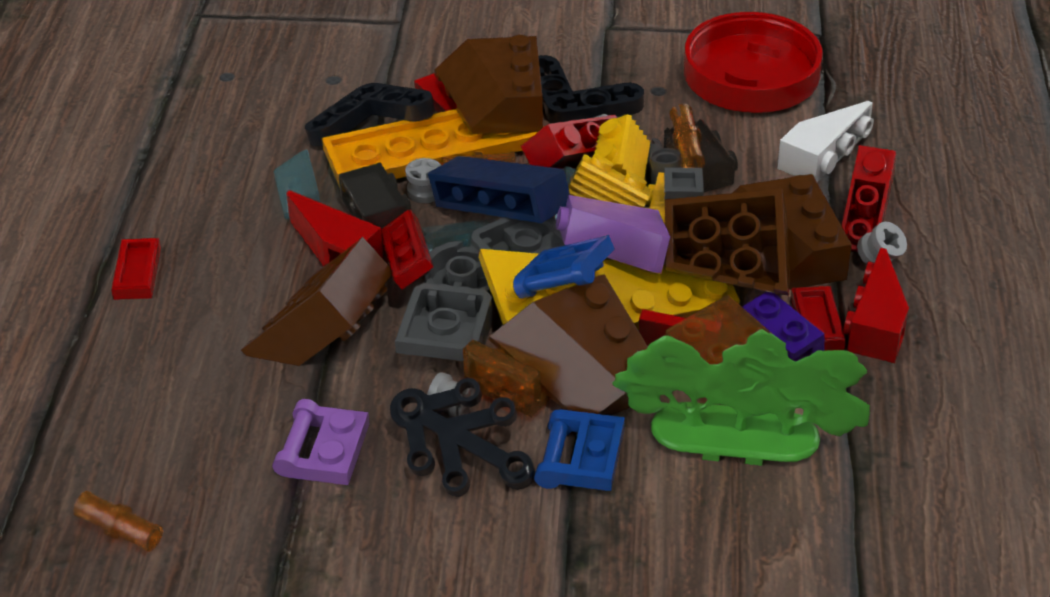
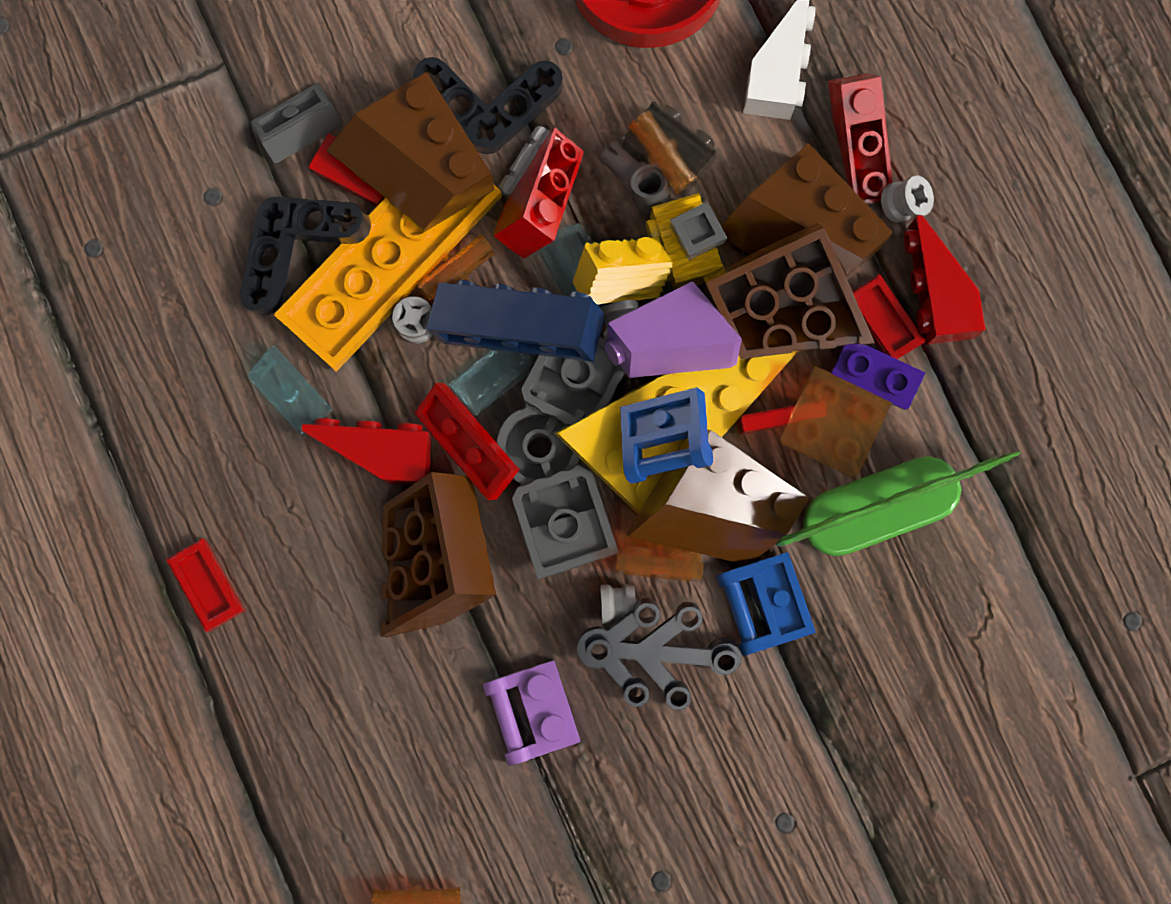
camera: 30 degrees left, 40 degrees up
(373, 195) = (385, 378): clear smoke brick -> none
(417, 63) = (296, 123): none -> dark grey slope
(623, 145) = (601, 199): yellow brick -> none

